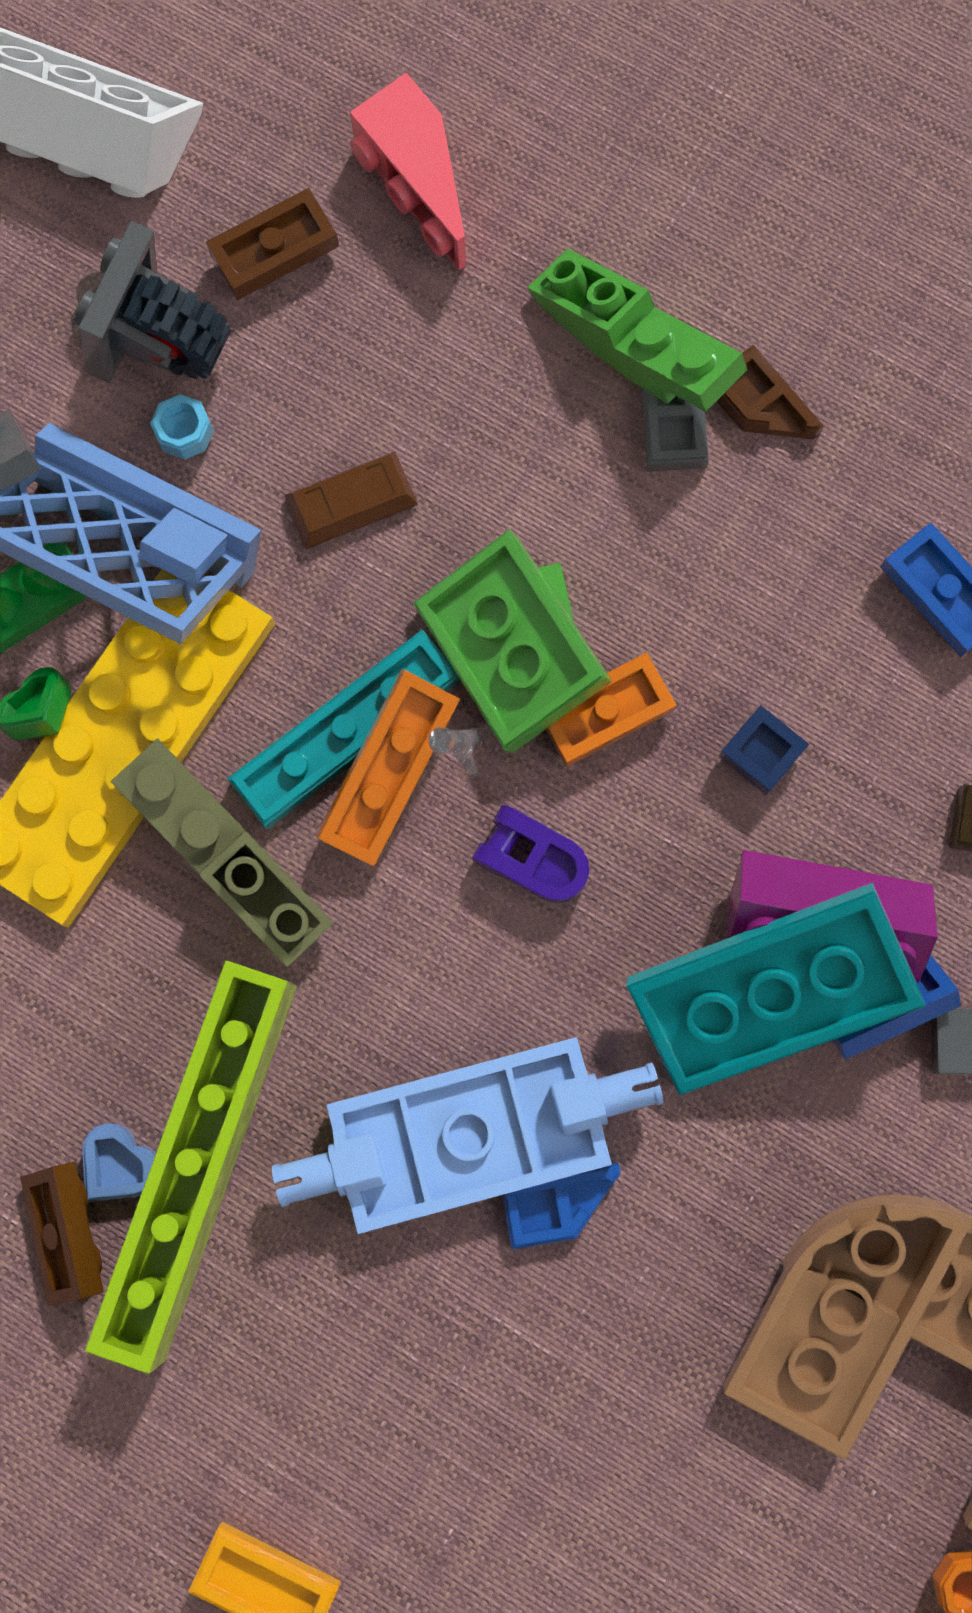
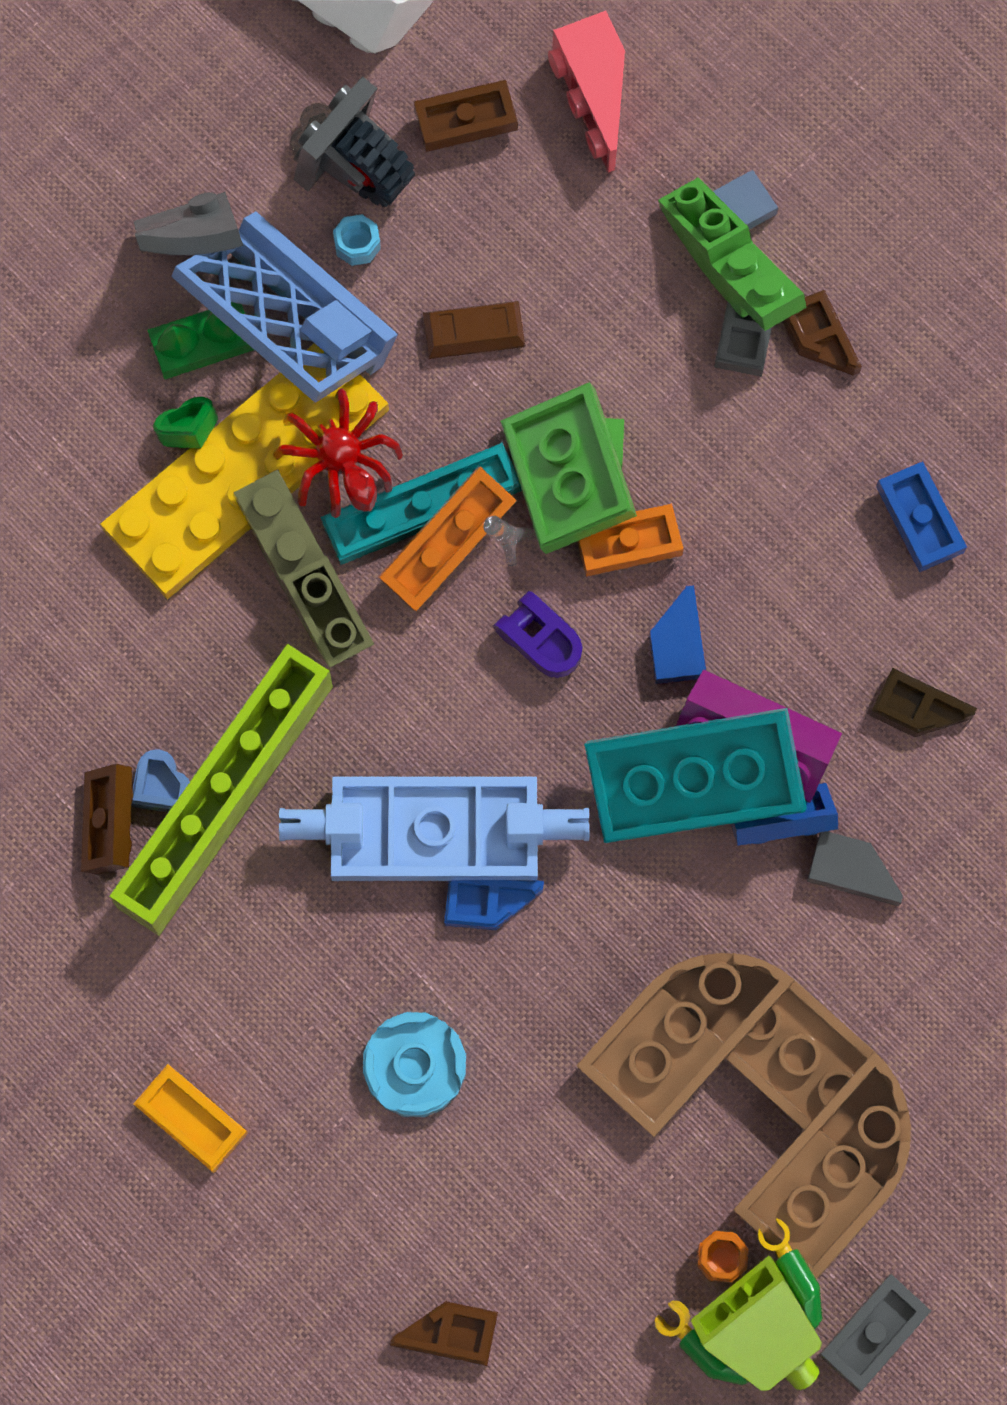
camera: 10 degrees right, 5 degrees down
(227, 696) = (338, 453): none -> red animal
(523, 1440) = (414, 1064): none -> medium azure tile
(634, 258) = (748, 199): none -> sand blue tile
(698, 818) = (678, 641): none -> blue tile
(763, 750) = (742, 601): dark blue plate -> none

